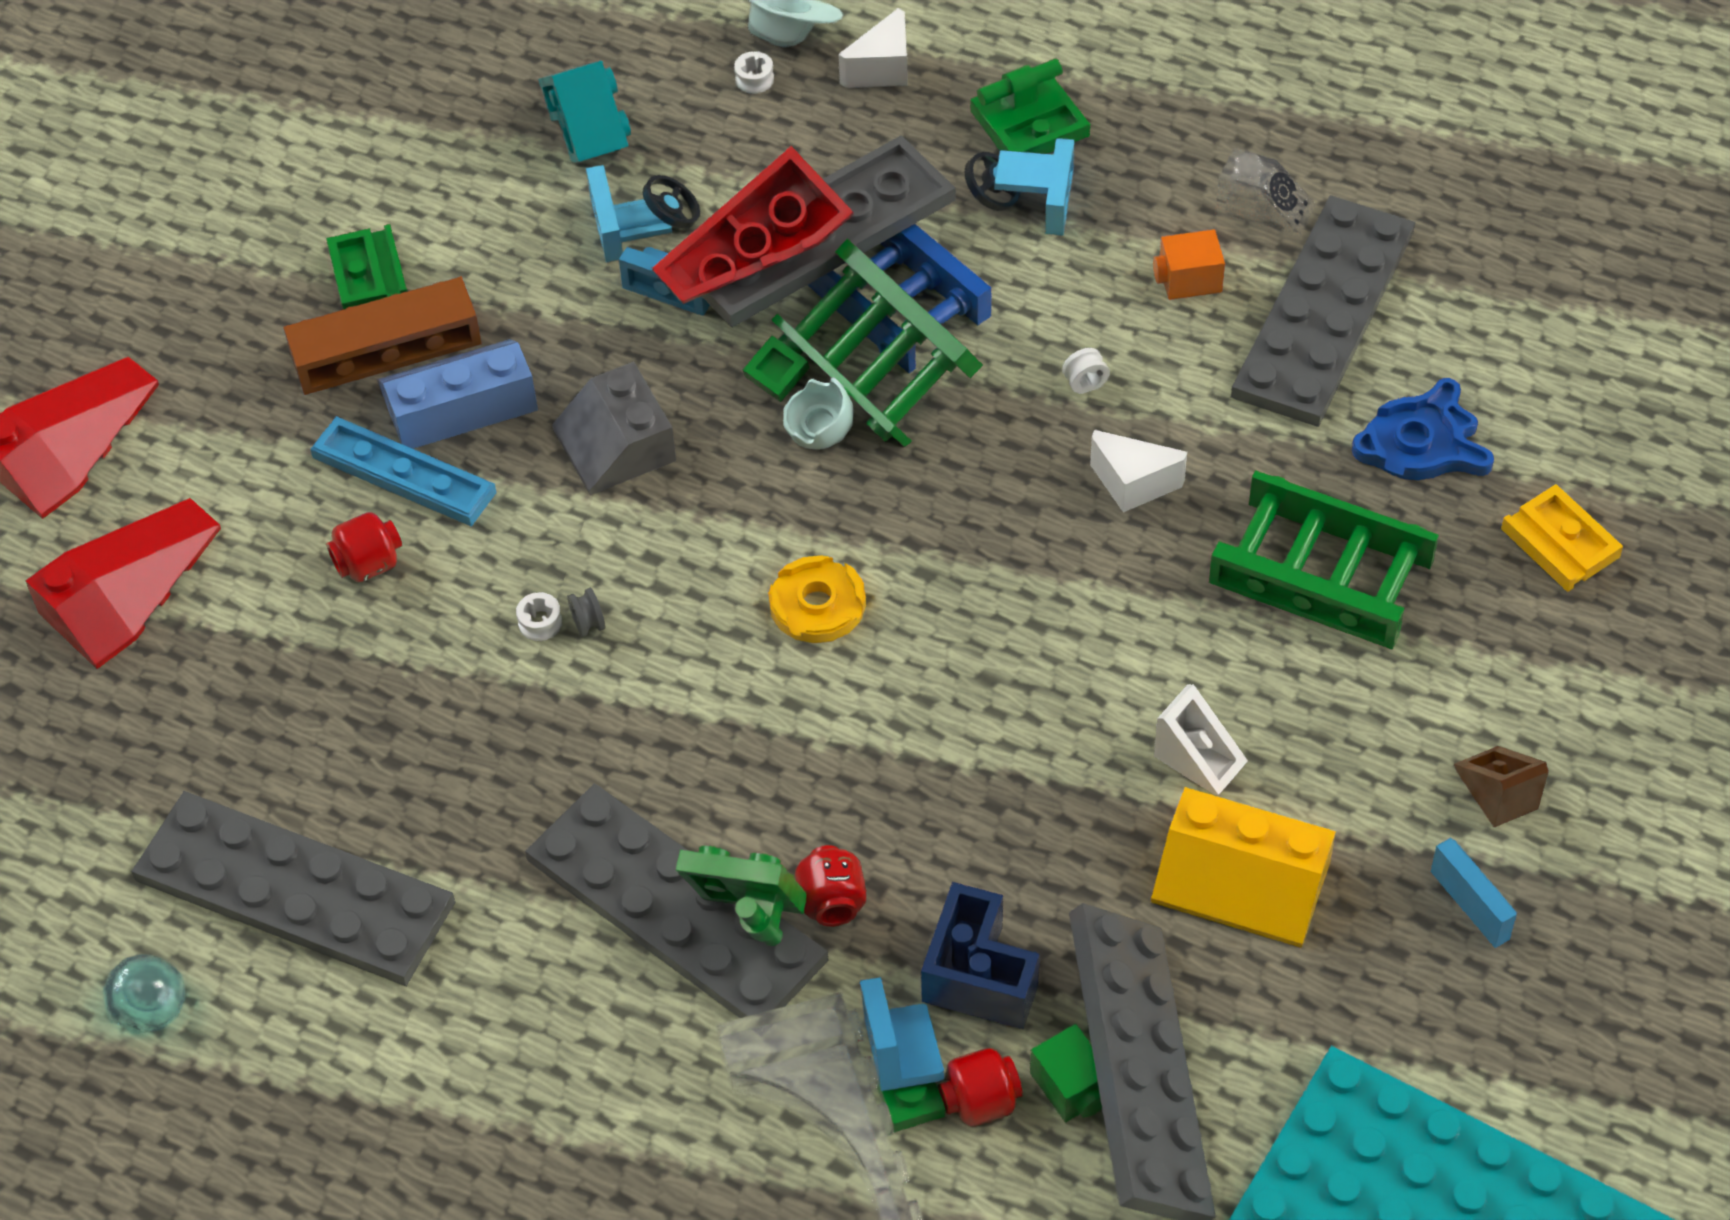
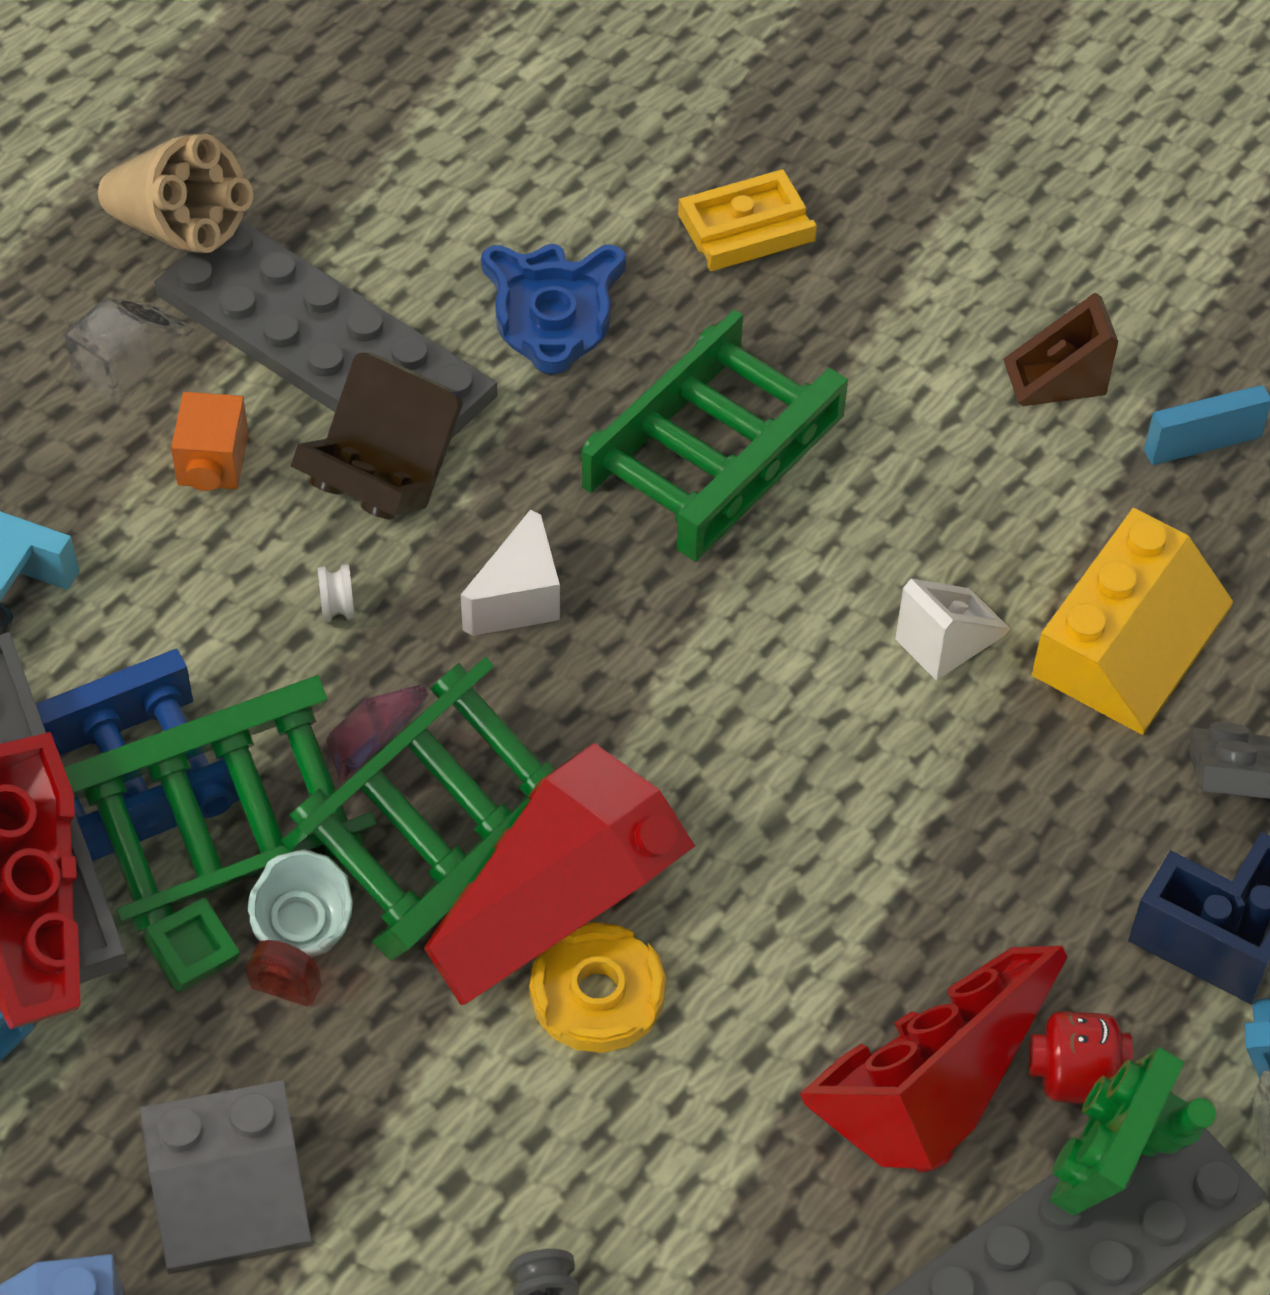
camera: 80 degrees left, 0 degrees up
(770, 423) = (284, 972): none -> clear red tile
(778, 791) = (936, 1079): none -> red wedge
(893, 542) = (569, 856): none -> red wedge
(915, 505) = (451, 869): none -> green fence
(958, 409) = (371, 727): none -> clear pink slope
(1212, 363) = (383, 438): none -> dark brown bracket
(1389, 175) = (180, 193): none -> tan cone

